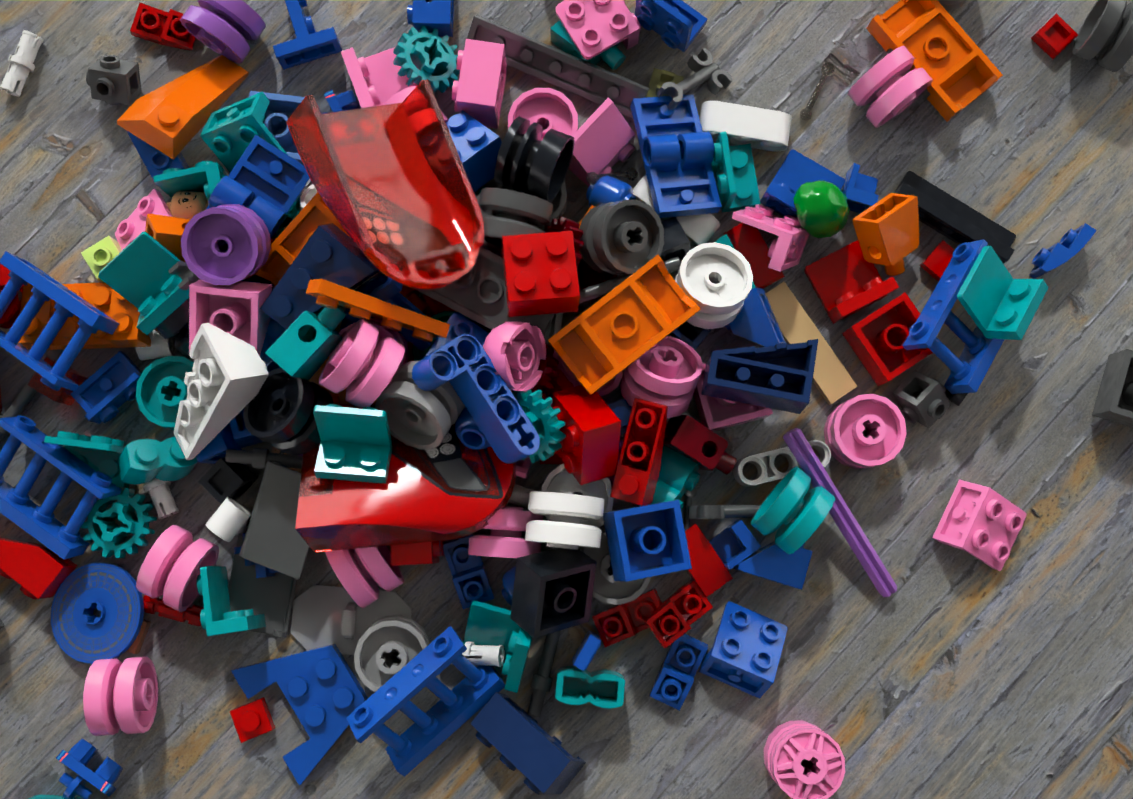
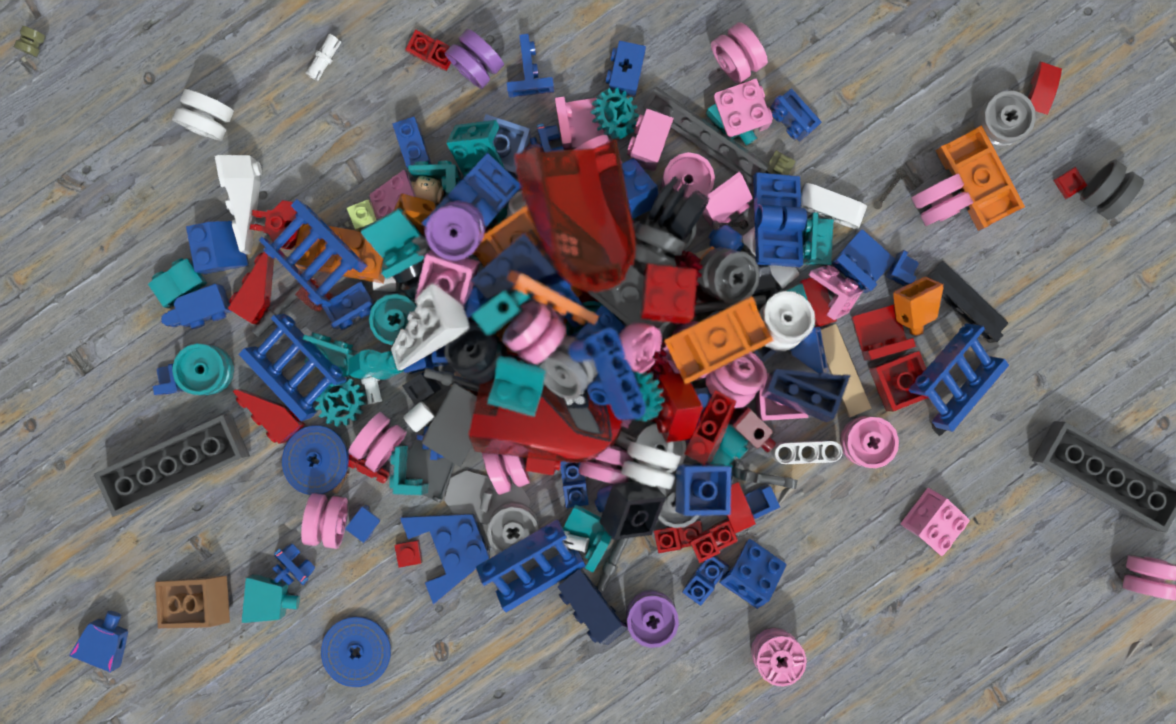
camera: 10 degrees right, 5 degrees up
(114, 80) = (388, 84): dark grey brick -> none
(178, 690) = (363, 524): none -> blue panel
(181, 108) = (433, 115): orange wedge -> none
(586, 650) = (646, 553): blue tile -> none
(600, 687) = (648, 579): teal brick -> none
(619, 762) = (655, 632): none -> medium lavender wheel
(705, 71) = (813, 160): dark grey bar -> none
(777, 565) = (790, 520): blue slope -> none
(793, 510) = (807, 488): teal wheel -> none
(821, 208) = (873, 279): green hair -> none
(841, 513) = (839, 494): medium lavender axle -> none
(922, 399) = (914, 427): dark grey brick -> none
(938, 260) = (948, 330): red tile -> none
(998, 302) = (983, 371): teal bracket -> none
(1061, 252) = (1032, 344): blue slope -> none

